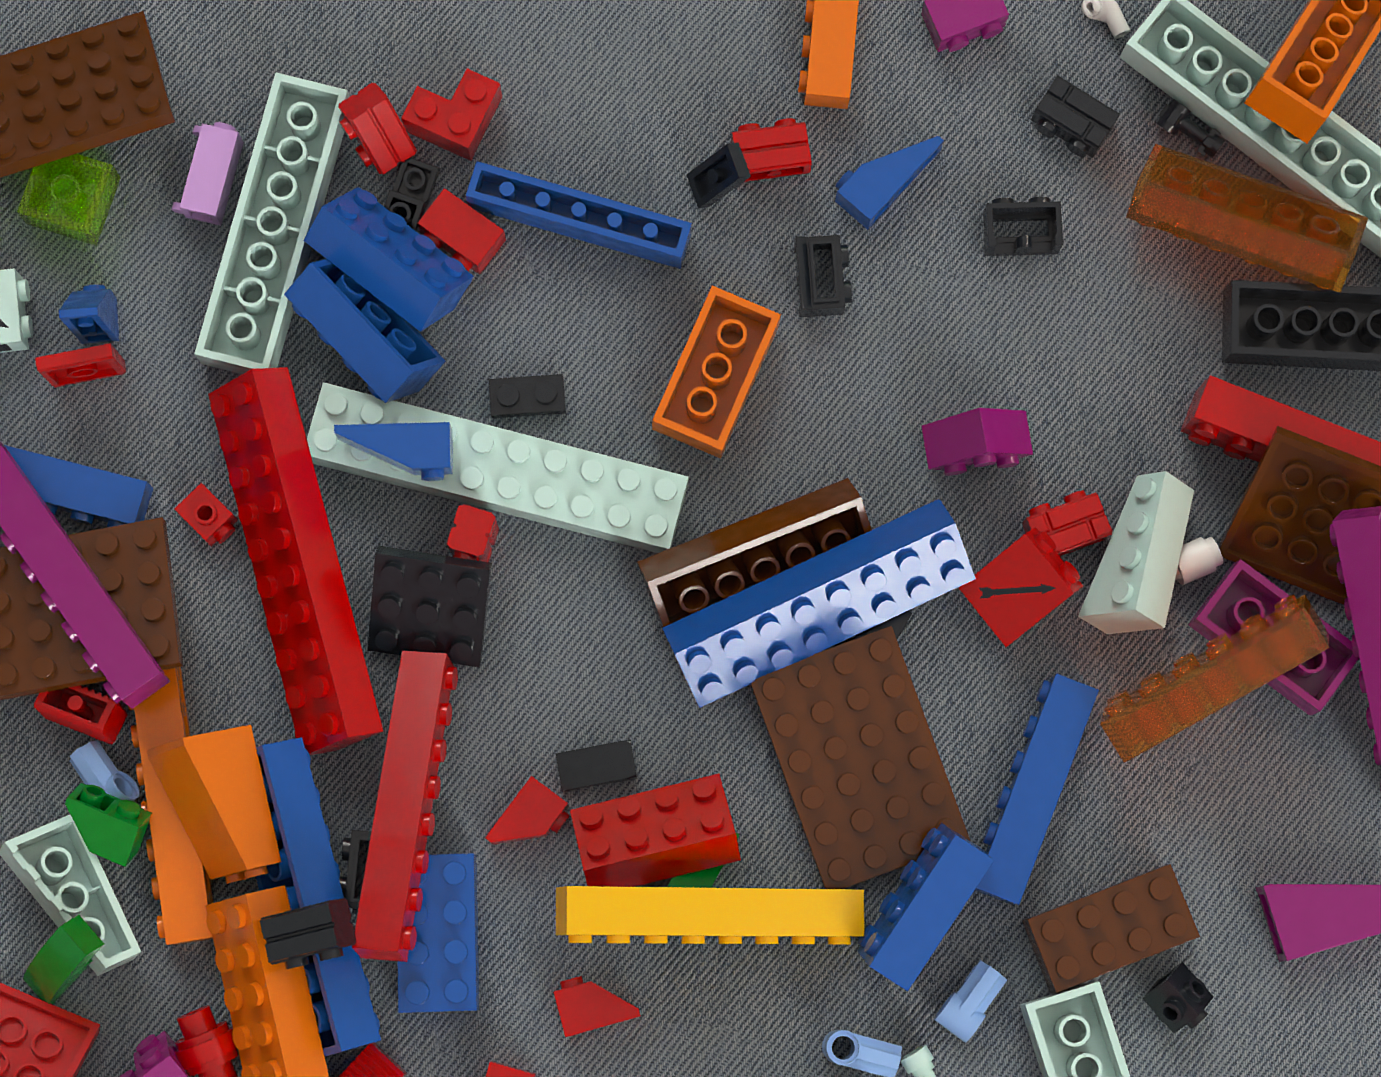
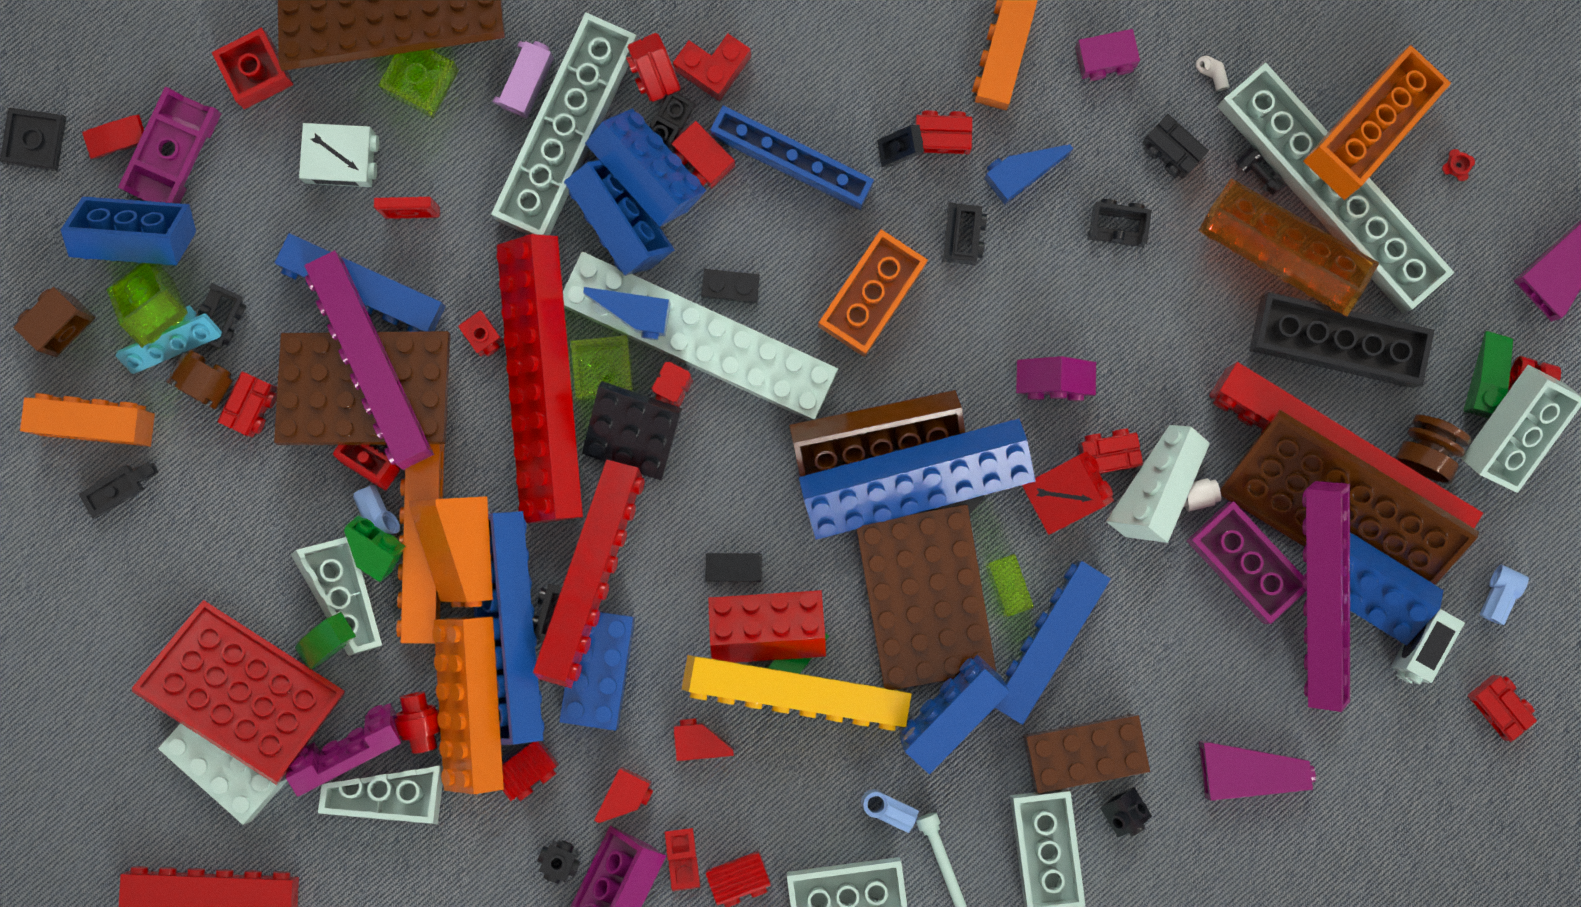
camera: 15 degrees right, 5 degrees up
(91, 314) = (421, 170): blue slope -> none
(307, 932) = (503, 655): black brick -> none
(370, 521) = (601, 360): none -> clear neon green brick
(530, 815) = (679, 595): red slope -> none
(965, 1008) = (969, 792): light blue piece -> none
(966, 723) = (1009, 585): none -> clear neon green brick
(1215, 677) = (1197, 586): clear orange brick -> none

